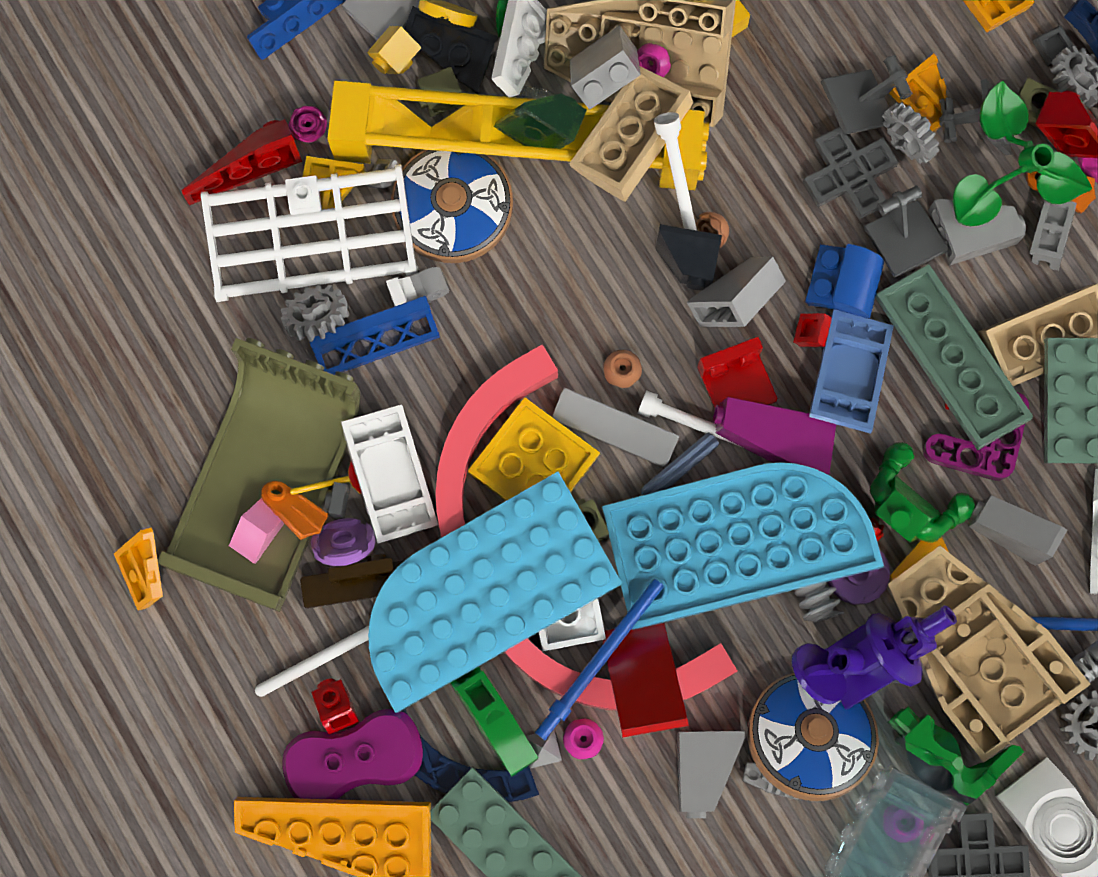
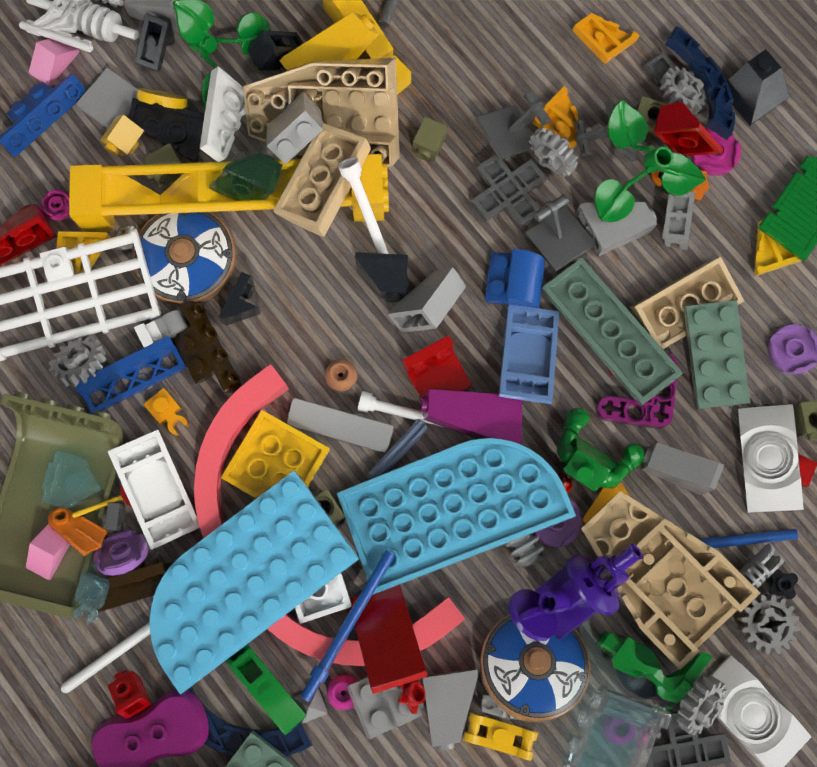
camera: 10 degrees left, 0 degrees up
(290, 451) = (68, 481): none -> clear light blue plate
(304, 585) = (92, 595): none -> clear light blue plate
(409, 382) = (164, 409): none -> light orange plate
(462, 318) = (203, 350): none -> dark brown bracket
(508, 272) = (236, 307): none -> black slope
(630, 759) = (380, 710): none -> light grey plate
(657, 55) = (338, 113): dark pink plate -> none
(665, 749) = (412, 695): none -> red plate
(713, 223) = (402, 246): nougat plate -> none
(761, 813) = (500, 736): none -> yellow plate
(762, 99) = (429, 139): none -> olive brick
(812, 330) = (493, 323): red plate -> none
(1004, 805) = (701, 705): none -> light grey gear

